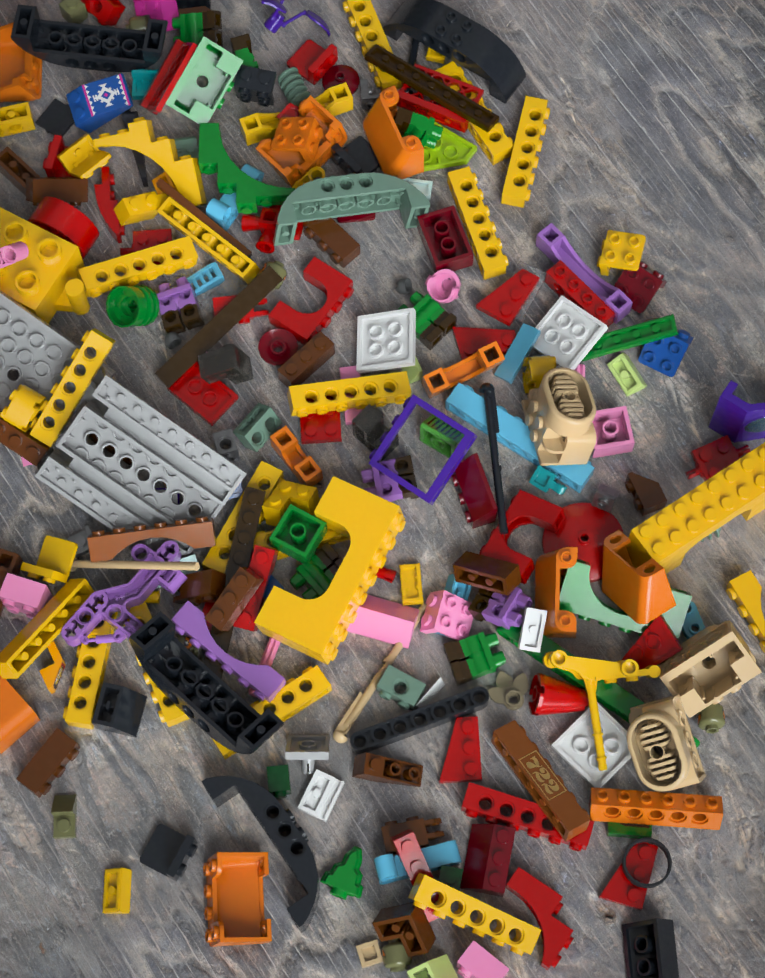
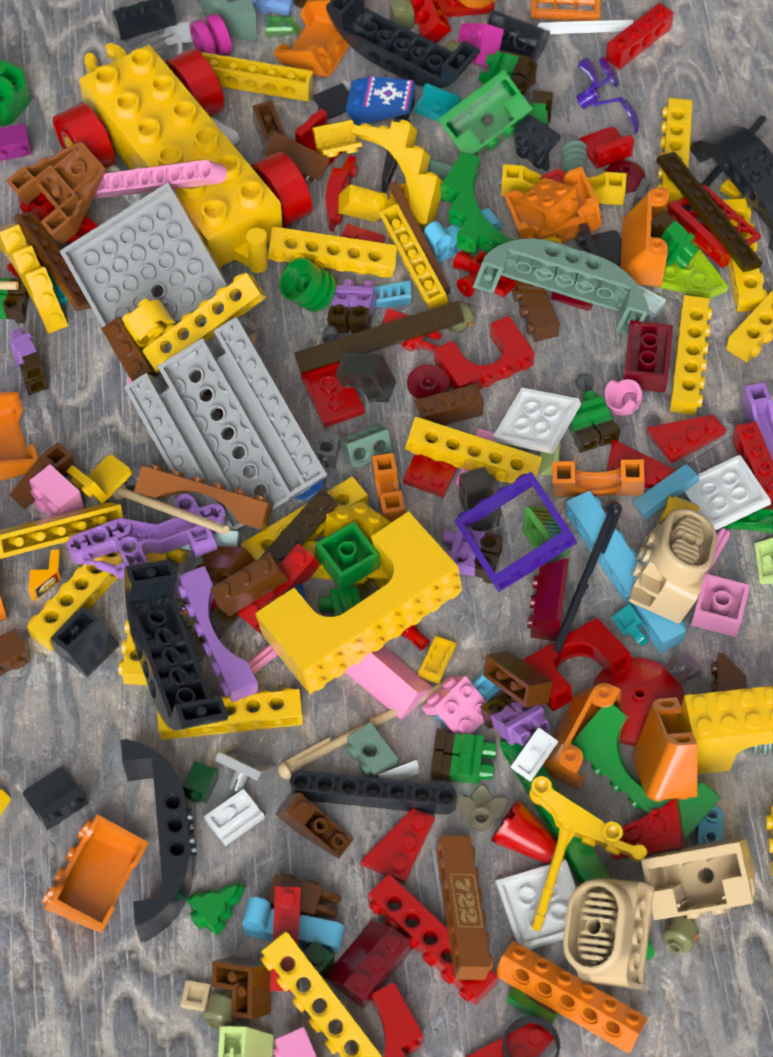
camera: 25 degrees right, 10 degrees down
(168, 76) = (430, 117): red fence -> none

